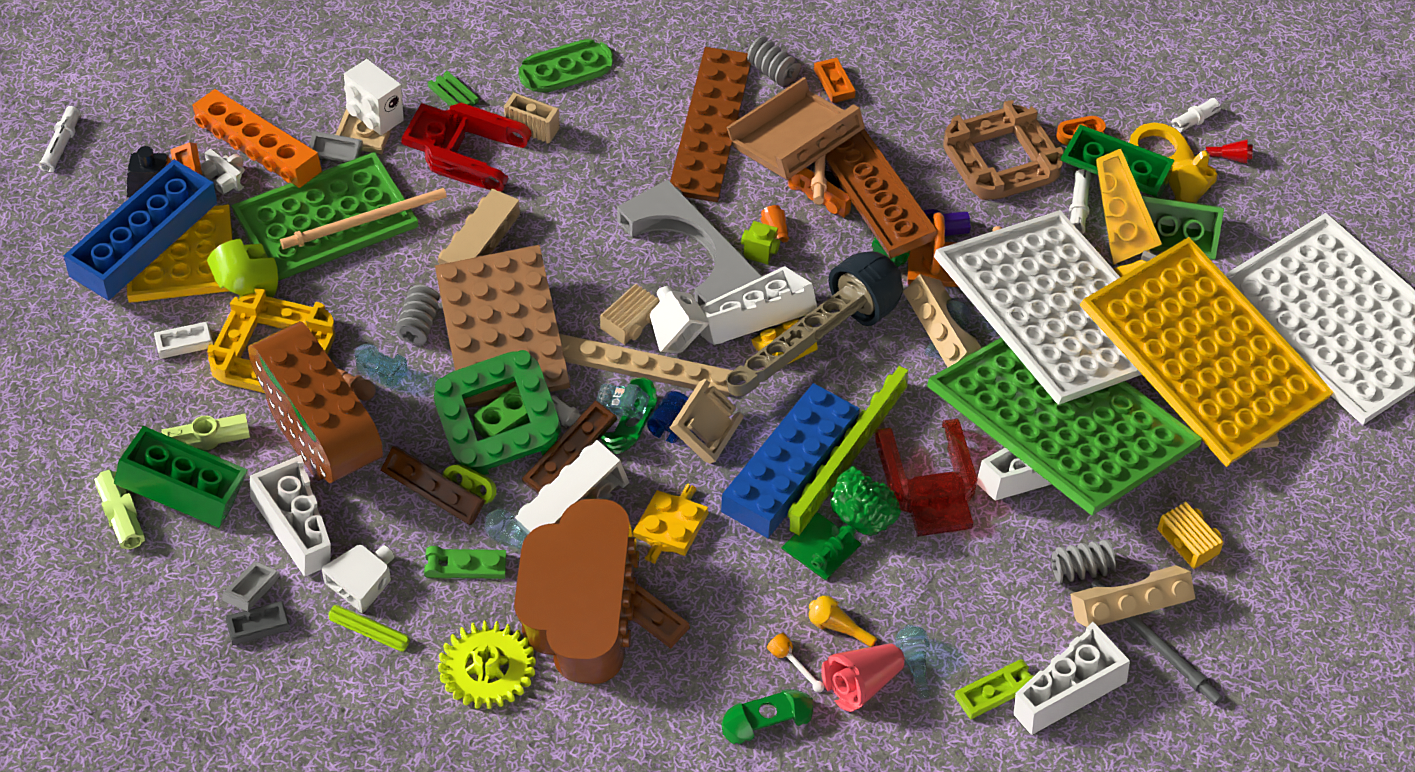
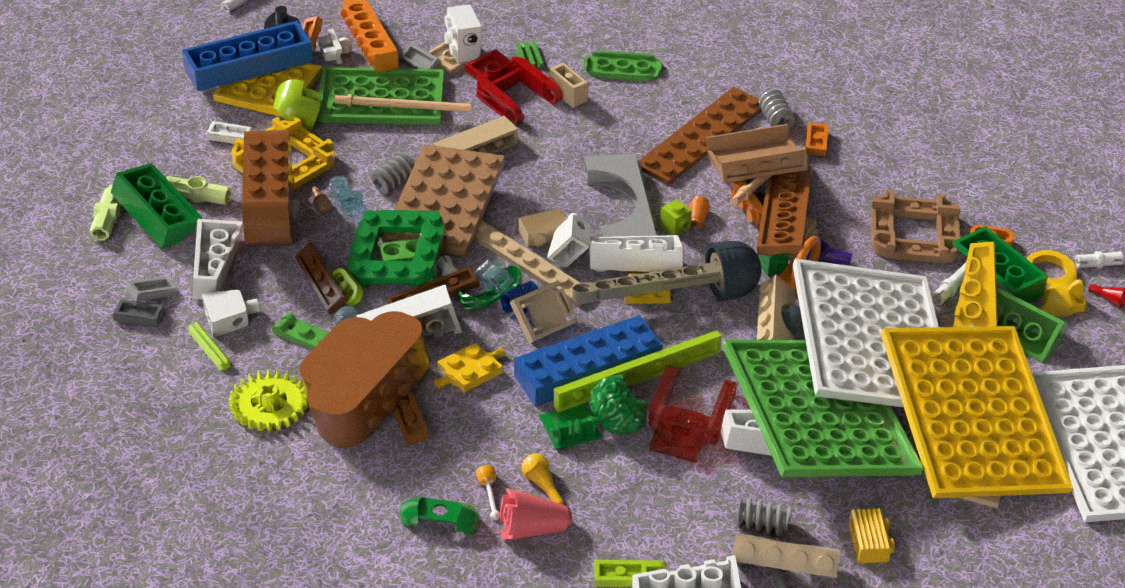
camera: 30 degrees right, 10 degrees down
(914, 644) = (585, 515): clear light blue piece -> none

